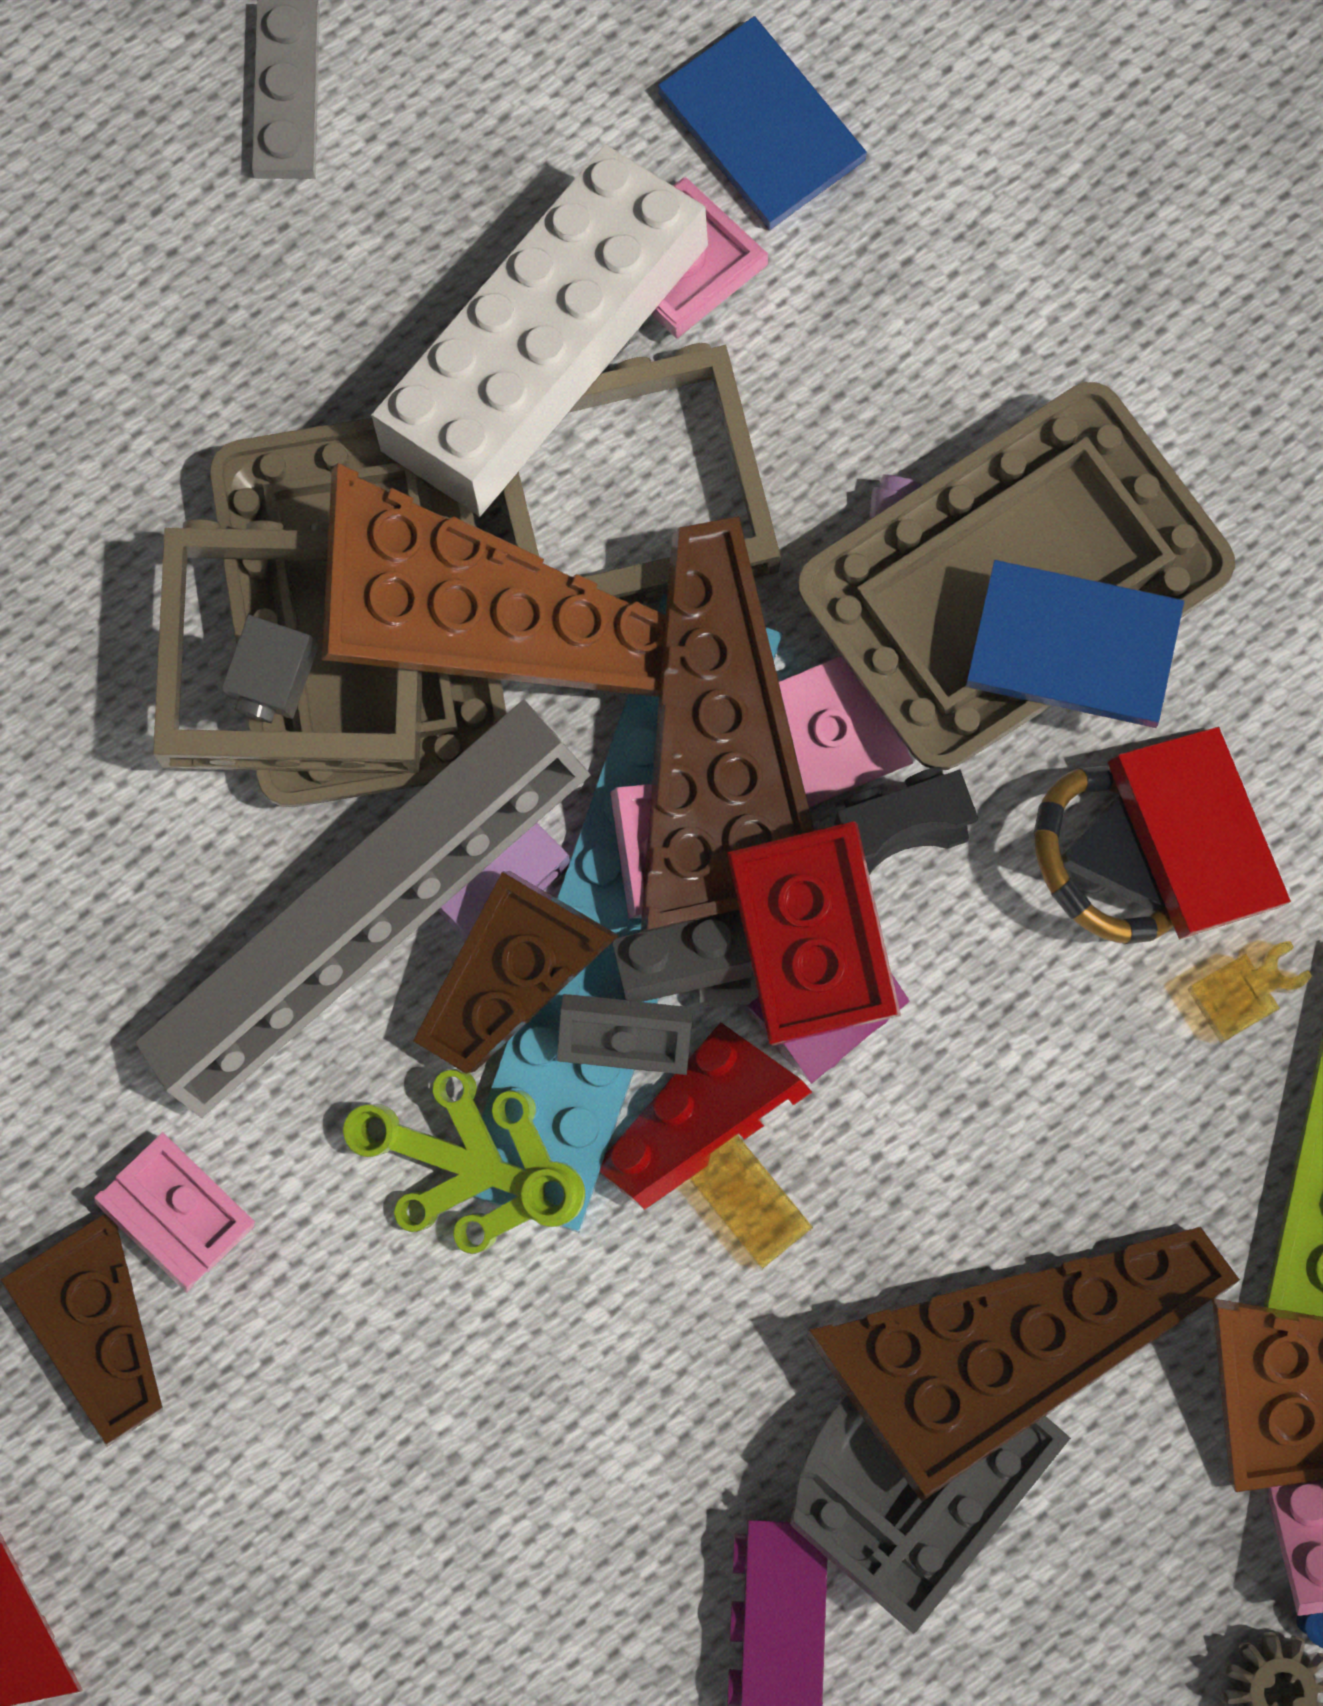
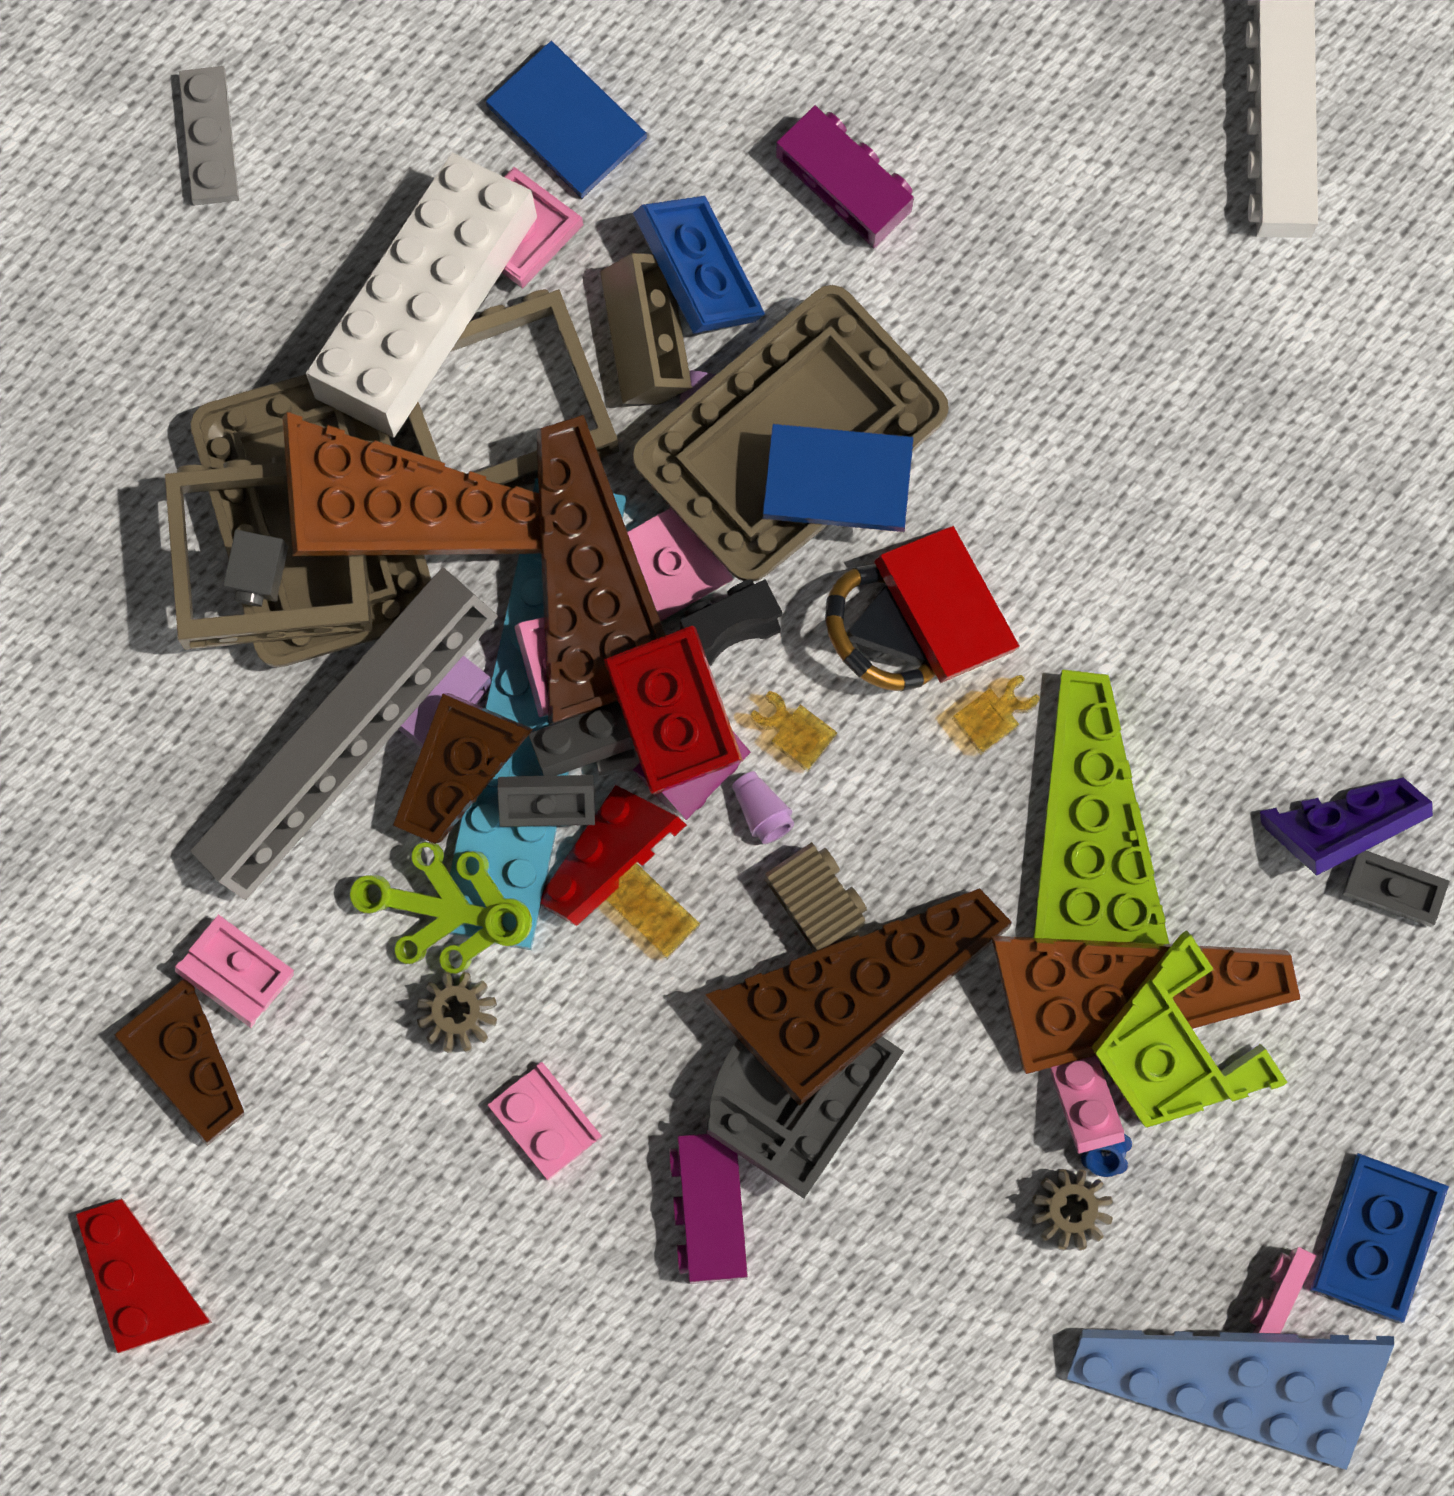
camera: 10 degrees left, 0 degrees up
(455, 1324) = (446, 1025): none -> dark tan gear
(568, 1471) = (544, 1121): none -> bright pink plate
(835, 412) = (645, 331): none -> dark tan brick
(916, 1080) = (763, 810): none -> lavender cone
(917, 333) = (698, 264): none -> blue tile
(975, 1212) = (816, 898): none -> dark tan brick
(978, 985) = (799, 734): none -> clear yellow plate
(1126, 239) = (845, 175): none -> magenta brick

